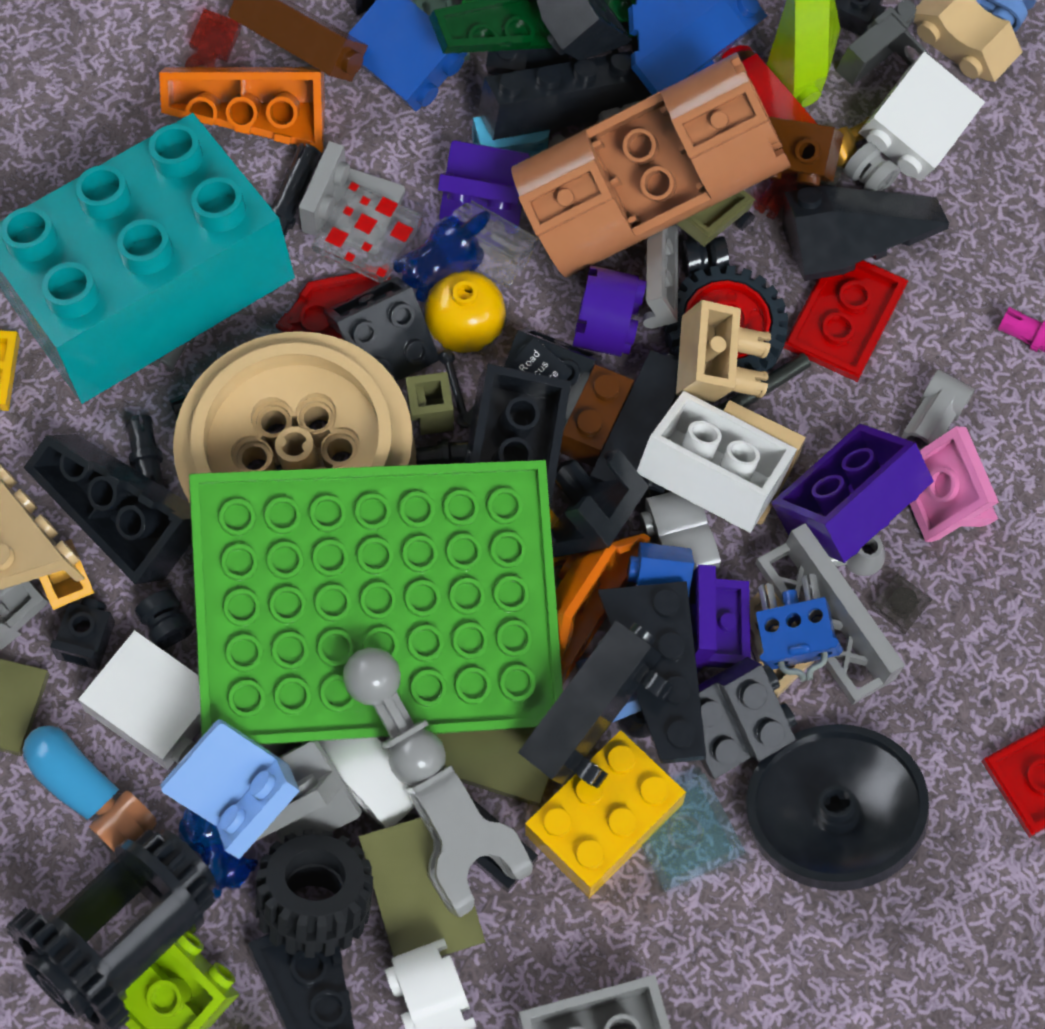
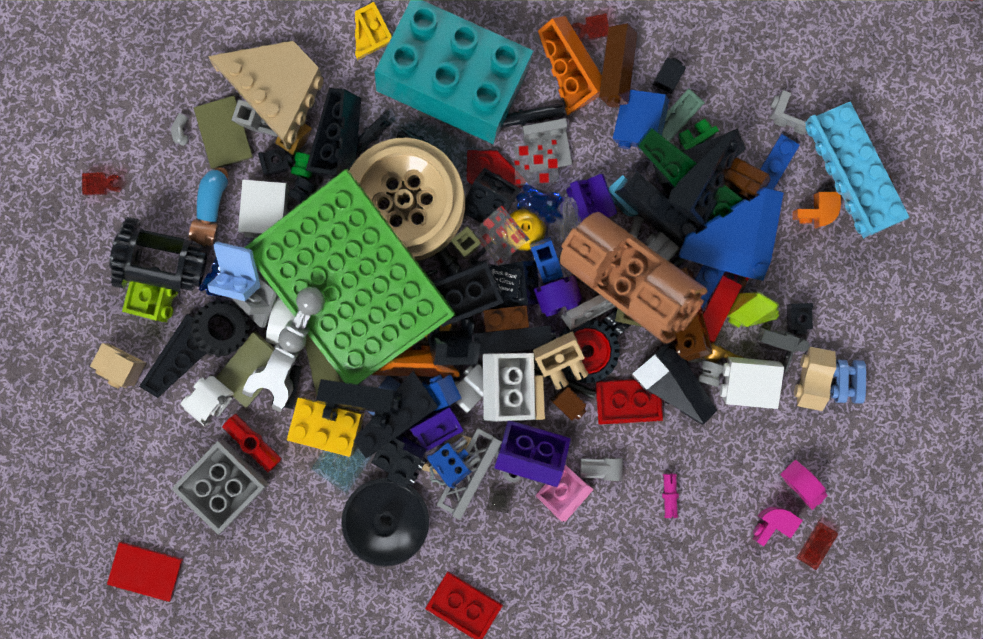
camera: 55 degrees right, 20 degrees up
(120, 592) = (300, 166): none -> green wheel
(453, 338) = (500, 235): none -> clear tile
(530, 299) = (546, 260): none -> blue brick
(586, 958) = (241, 432): none -> red piece
(800, 390) = (570, 403): none -> reddish brown brick

